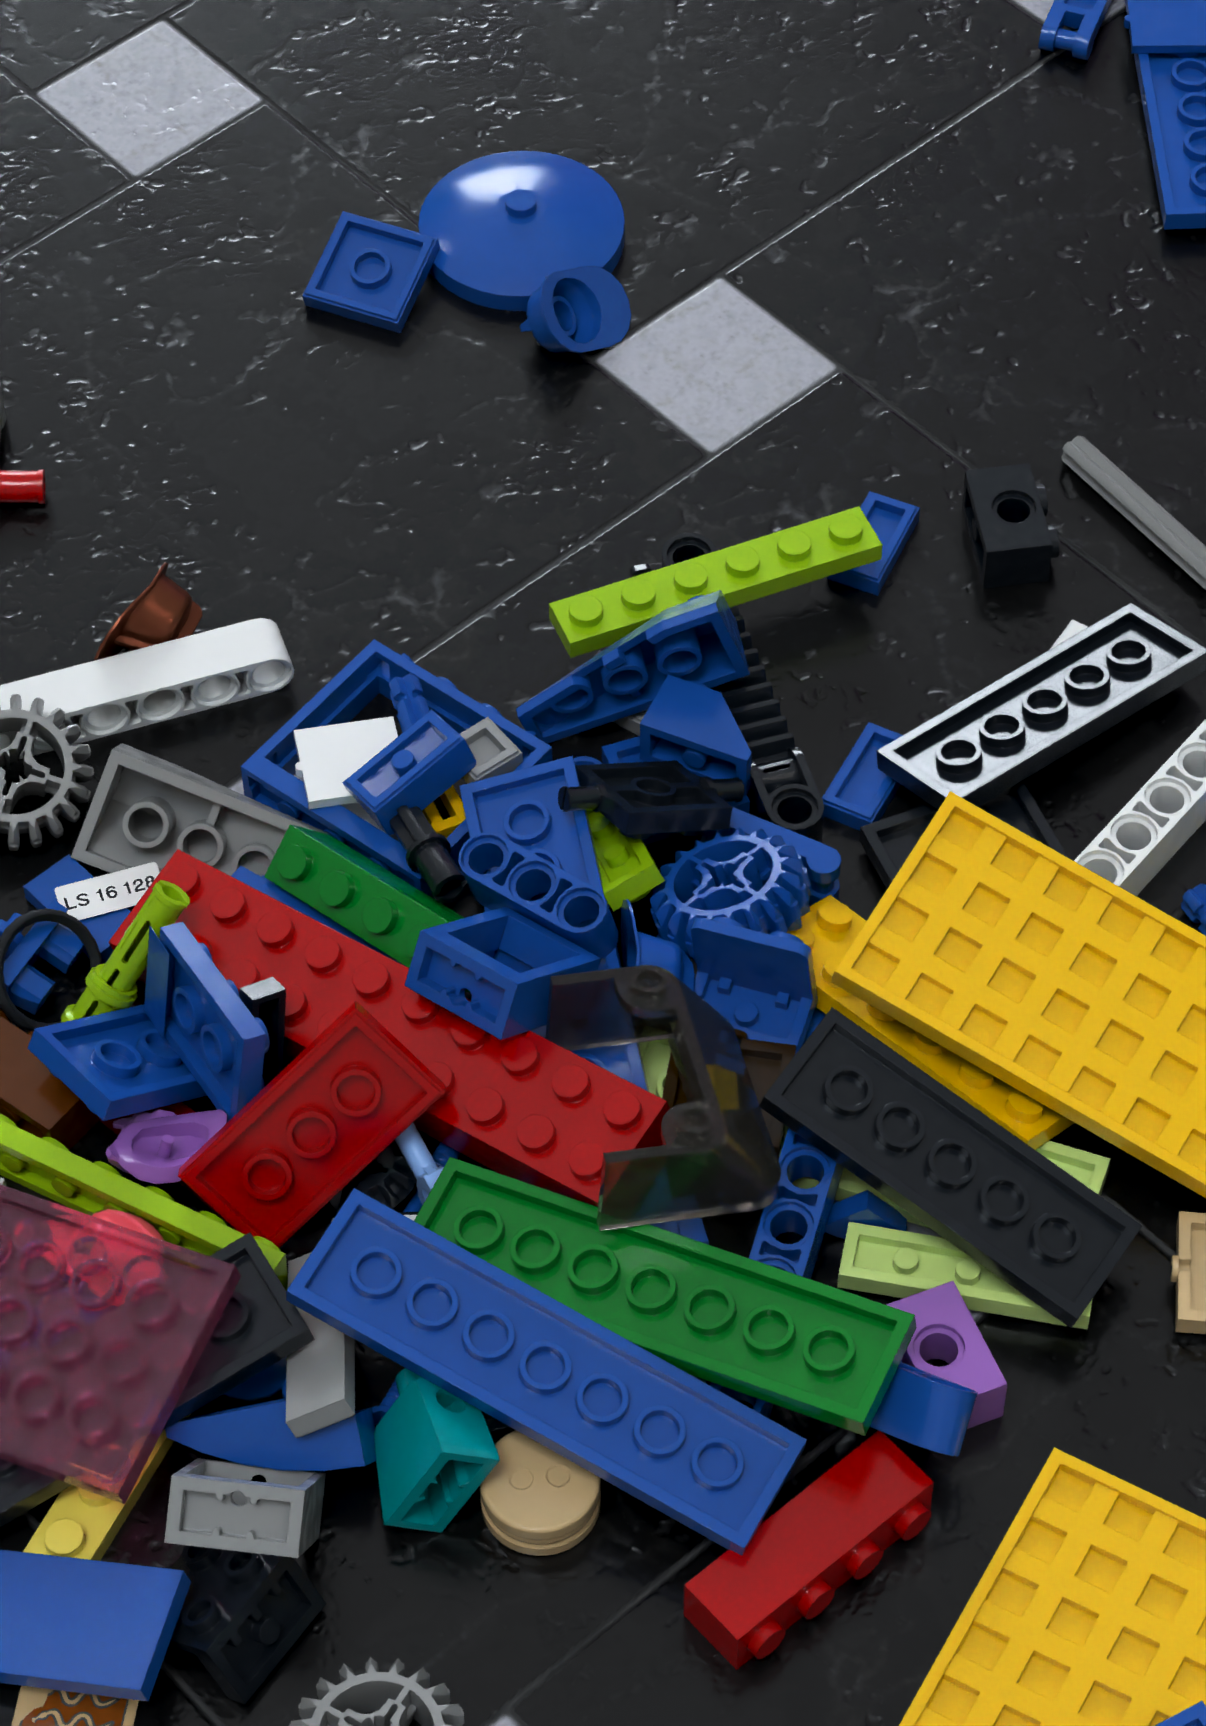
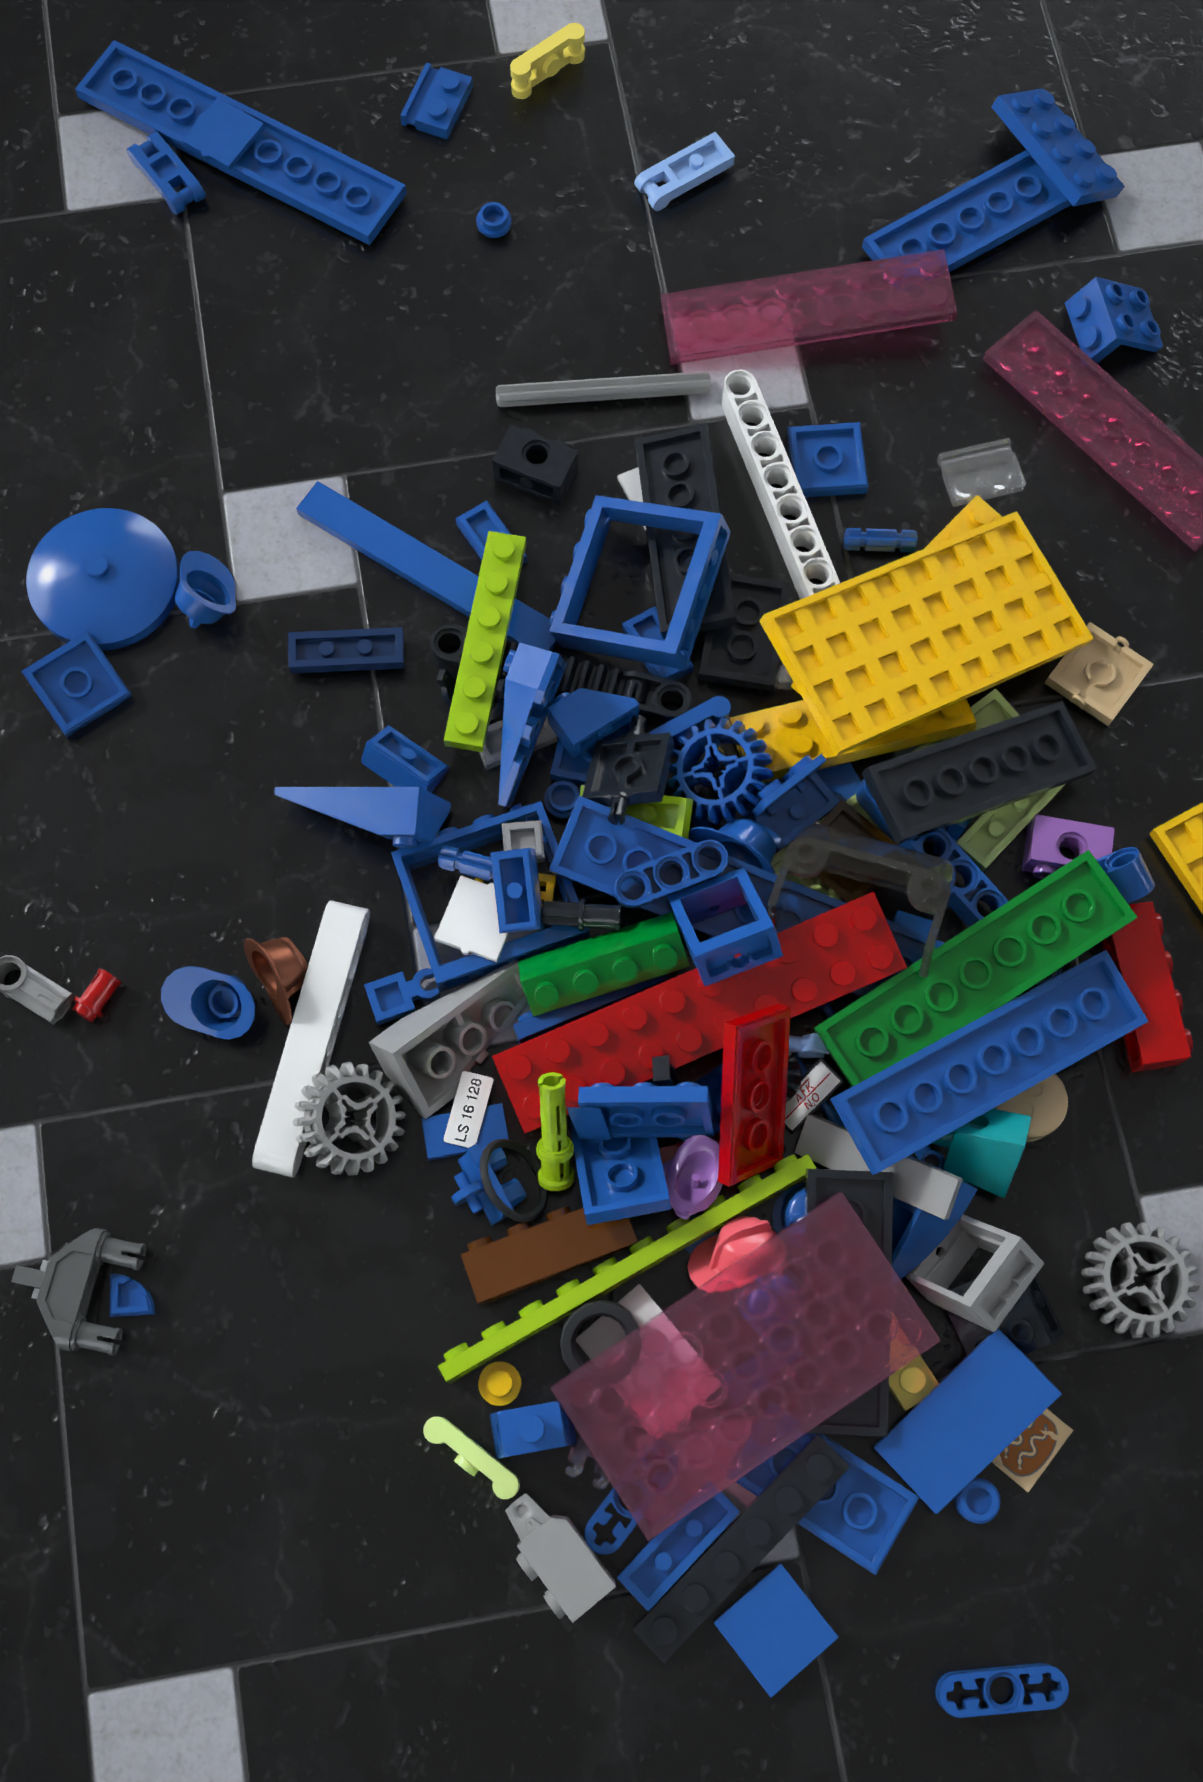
camera: 60 degrees left, 20 degrees up
(71, 578) = (208, 1002): none -> blue piece
(205, 750) = (394, 996): none -> blue plate
(419, 603) = (394, 813): none -> wedge
(511, 612) = (402, 761): none -> blue slope
(609, 480) = (346, 650): none -> dark blue plate
(781, 499) = (413, 560): none -> blue tile
(938, 737) = (693, 598): none -> blue window

